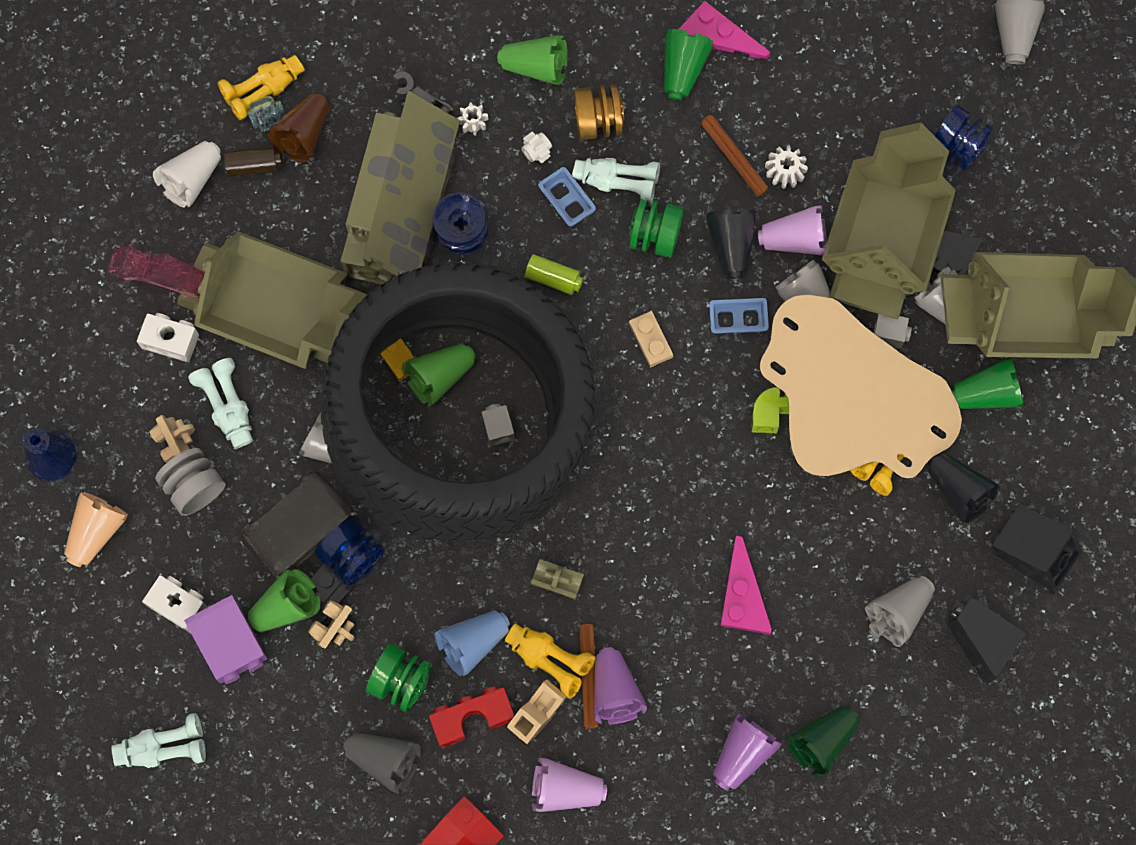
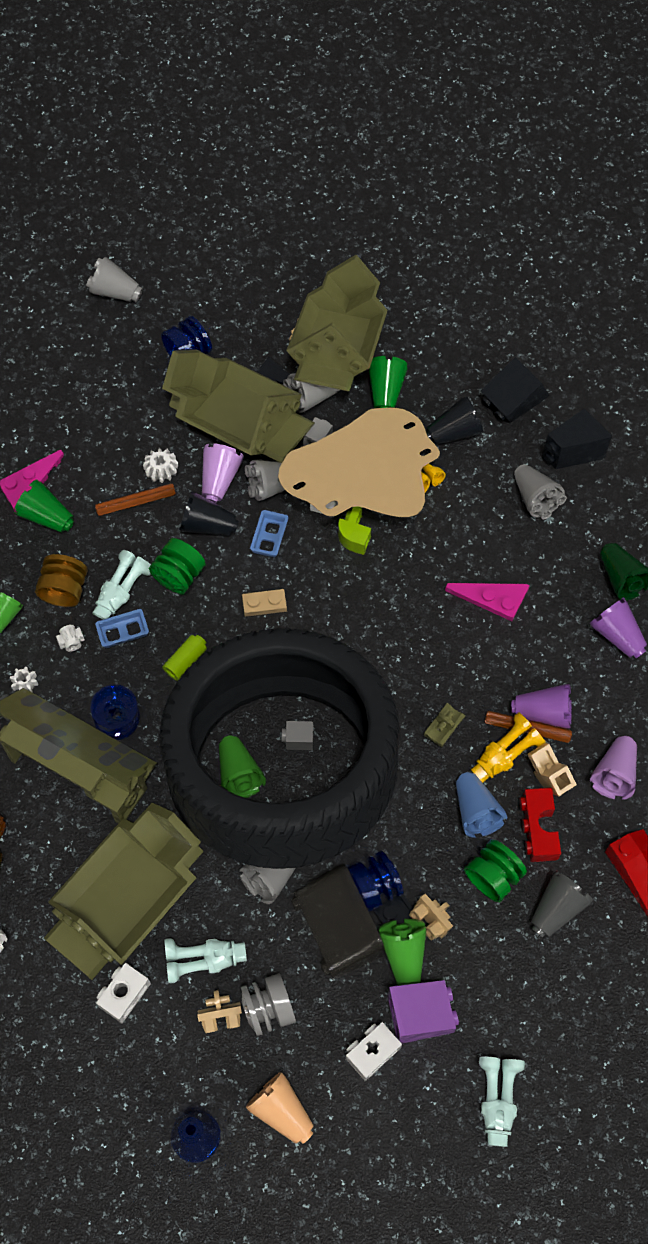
camera: 75 degrees left, 10 degrees down
(156, 269) = (58, 981): clear pink arch -> none

